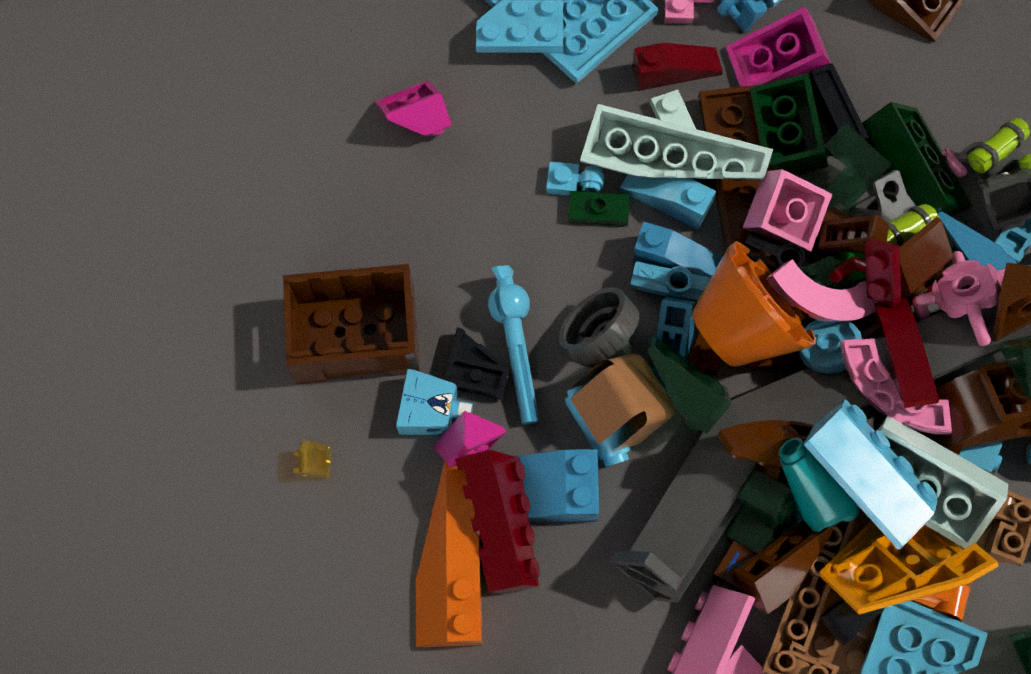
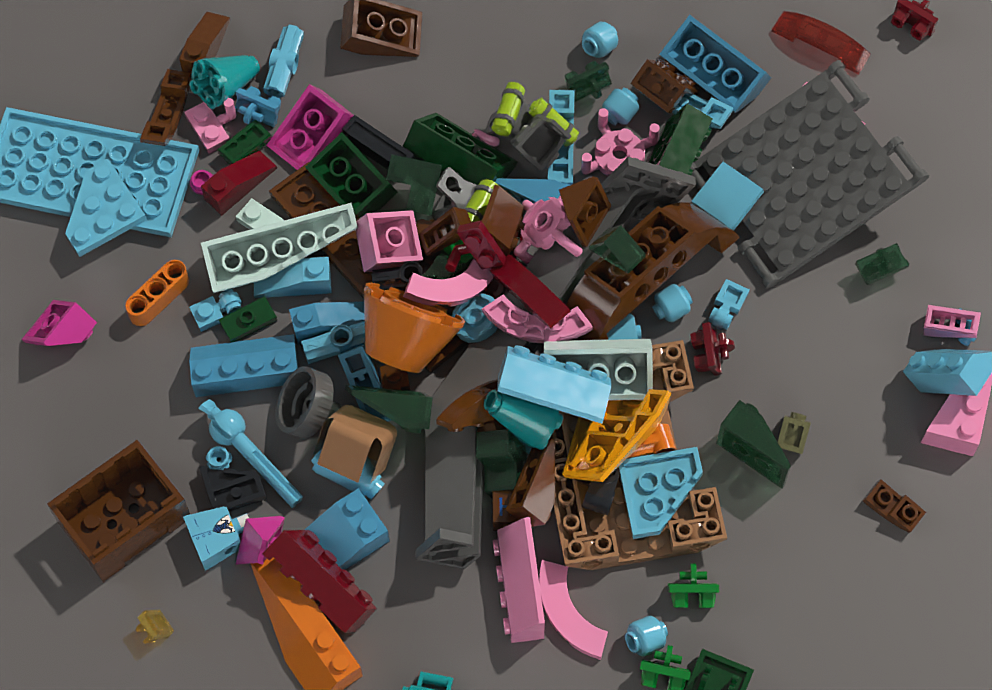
camera: 35 degrees left, 5 degrees down
(485, 323) = (218, 452): none -> medium azure plate
(536, 119) = (156, 303): none -> orange beam
(564, 250) = (242, 365): none -> dark azure slope
(637, 40) = (199, 179): none -> dark pink plate
(706, 31) = (245, 143): none -> dark green plate

